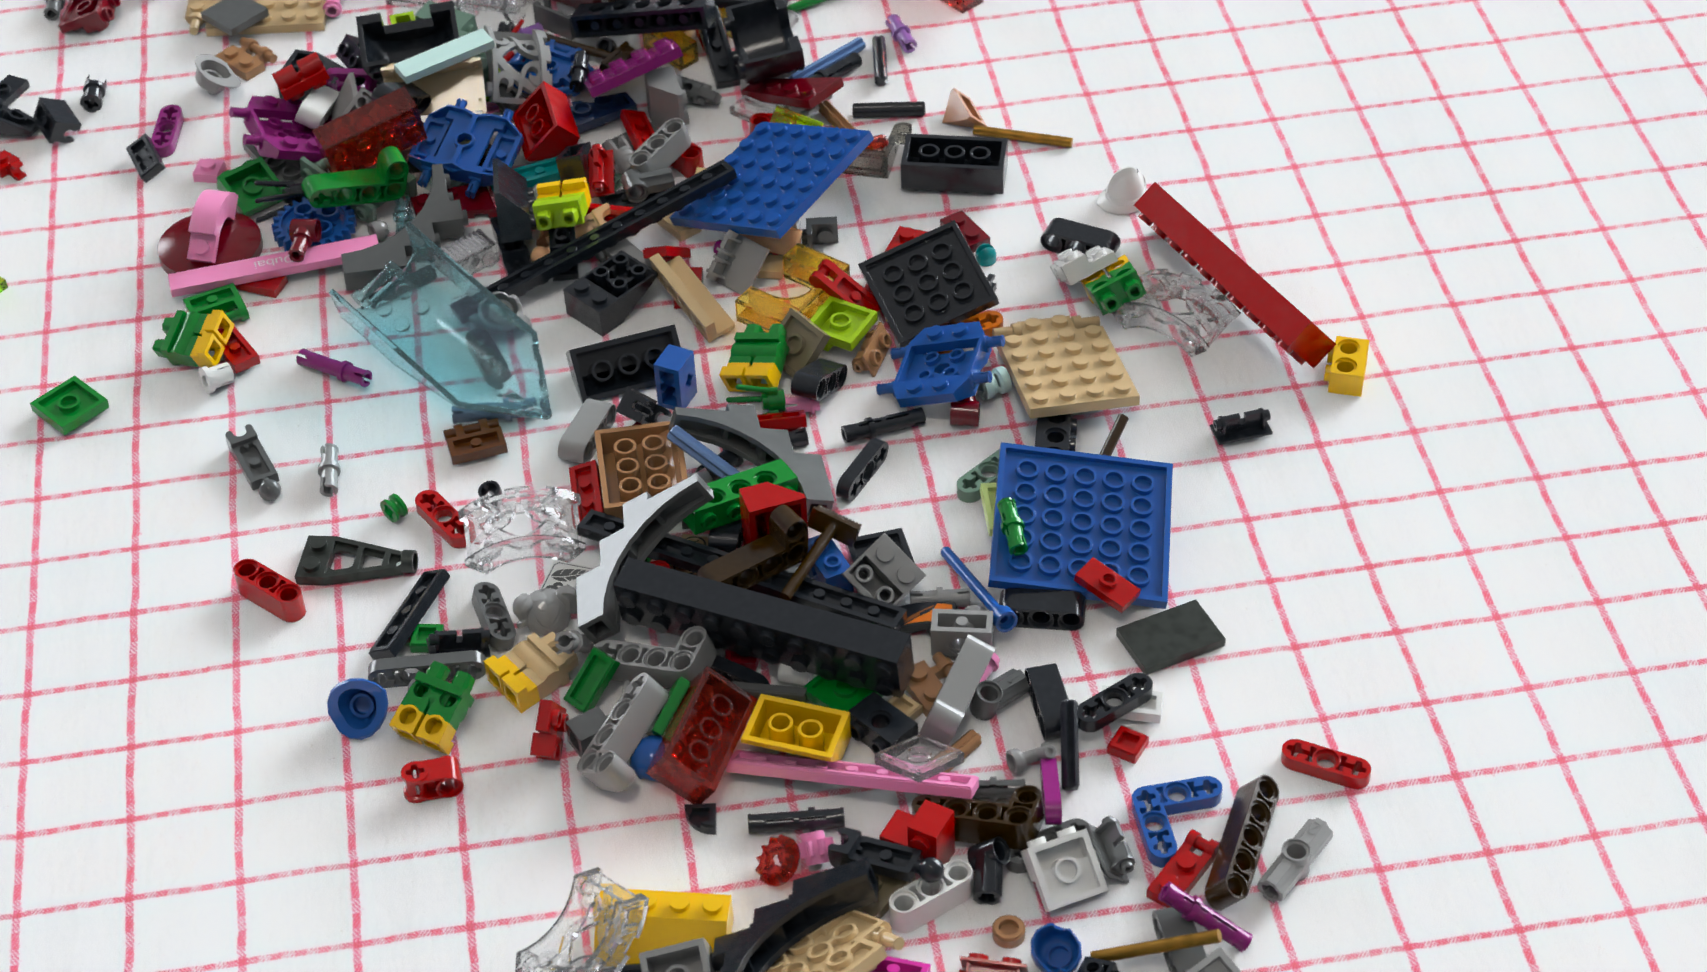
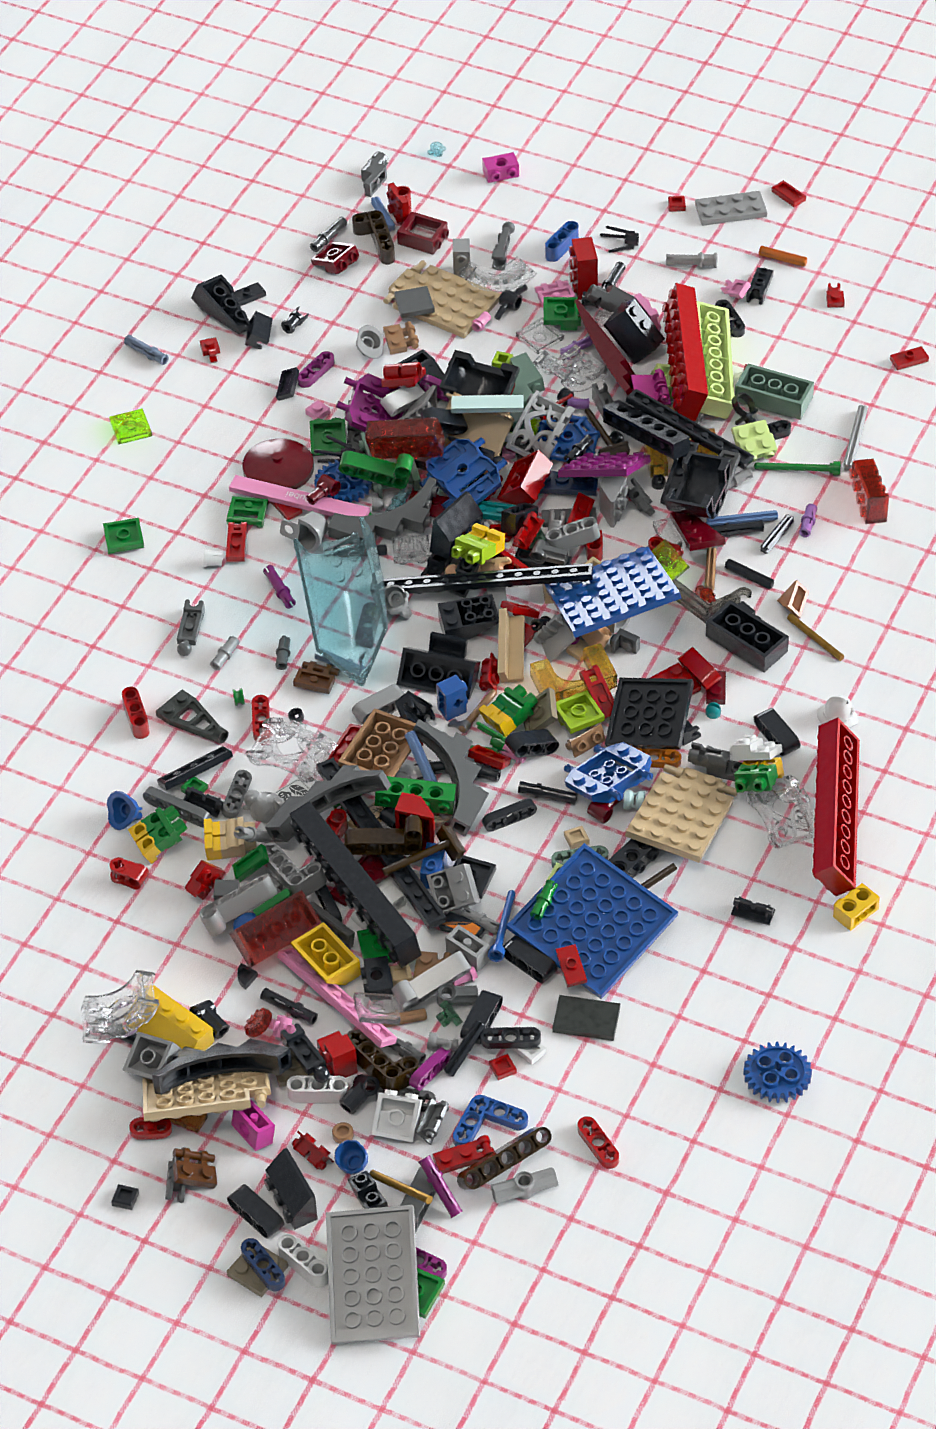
camera: 35 degrees right, 5 degrees up
(192, 336) = (215, 526): hips -> none
(207, 221) = (277, 449): bright pink arch -> none
(316, 294) = (308, 530): none -> light grey container
(406, 435) = (282, 653): none -> dark grey axle
(610, 327) = (448, 644): none -> black tile
(686, 332) = (489, 673): none -> red hinge
(695, 68) = (654, 482): none -> black hinge
(702, 252) = (540, 622): none -> black pin
(709, 885) = (207, 1012): none -> black piece
(712, 401) = (465, 725): none -> medium nougat piece
(931, 214) = (699, 668): none -> red beam
(962, 455) = (576, 837): none -> tan tile
(1009, 719) = (448, 1015): none -> clear green tile
(1048, 299) = (715, 760): none -> dark grey plate
(1446, 575) = (777, 1072): none -> blue gear

